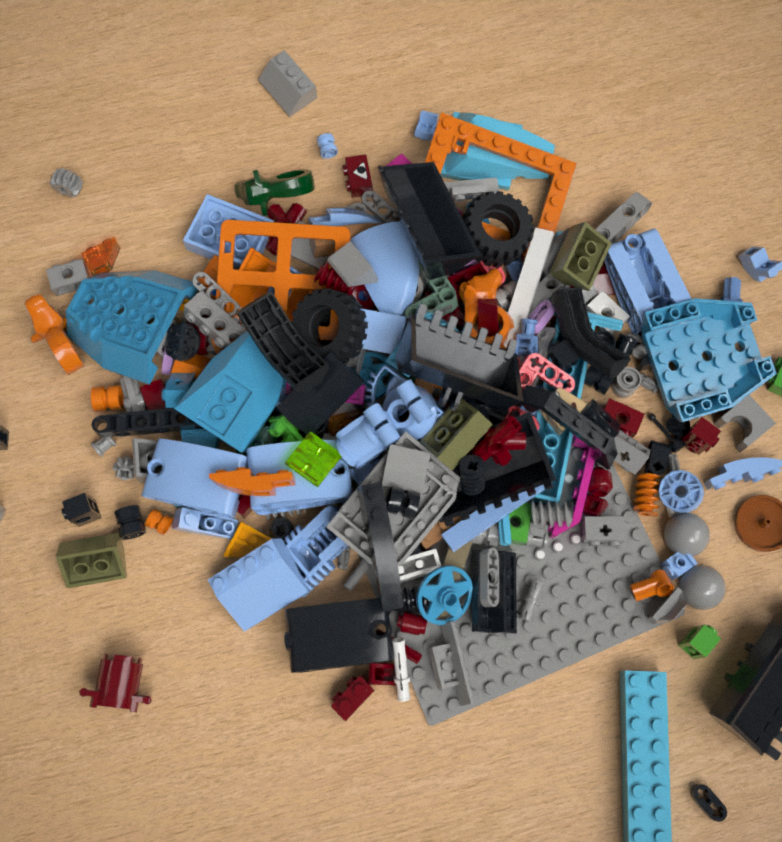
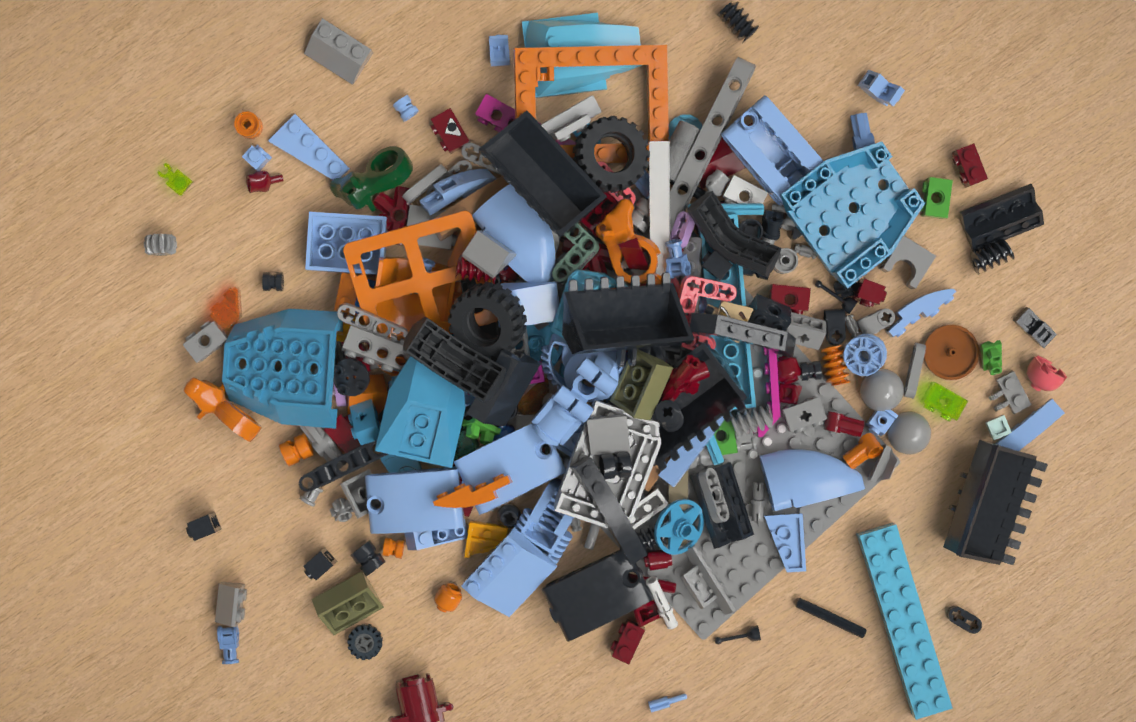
camera: 15 degrees left, 15 degrees up
(86, 602) = (358, 644): none -> black wheel
(105, 139) = (177, 181): none -> clear neon green plate
(151, 247) = (273, 281): none -> black wheel
(178, 163) = (261, 181): none -> dark red piece
(182, 142) = (257, 157): none -> light blue brick
(186, 114) = (248, 125): none -> orange wheel
(191, 589) = (448, 597): none -> orange head
(228, 149) = (306, 146): none -> light blue wing
(313, 459) = (520, 452): clear neon green slope -> none
(316, 207) = (424, 184): none -> light grey beam
(367, 778) = (664, 702): none -> light blue axle
(482, 737) = (752, 634): none -> black hinge
(551, 649) = (788, 537): none -> light blue wing
(569, 750) = (830, 618): none -> black axle
(580, 257) = (702, 156): olive slope -> none
(587, 593) = (806, 478): none -> light blue panel
(622, 491) = (810, 370): none -> black wheel
(633, 550) = (839, 423): none -> dark red piece
(644, 169) = (738, 21): none -> black piece
(698, 466) = (873, 324): none -> light grey piece
(700, 641) = (919, 485): bright green brick -> none
(723, 527) = (914, 370): none -> light grey beam
(755, 572) = (954, 406): none -> clear neon green brick

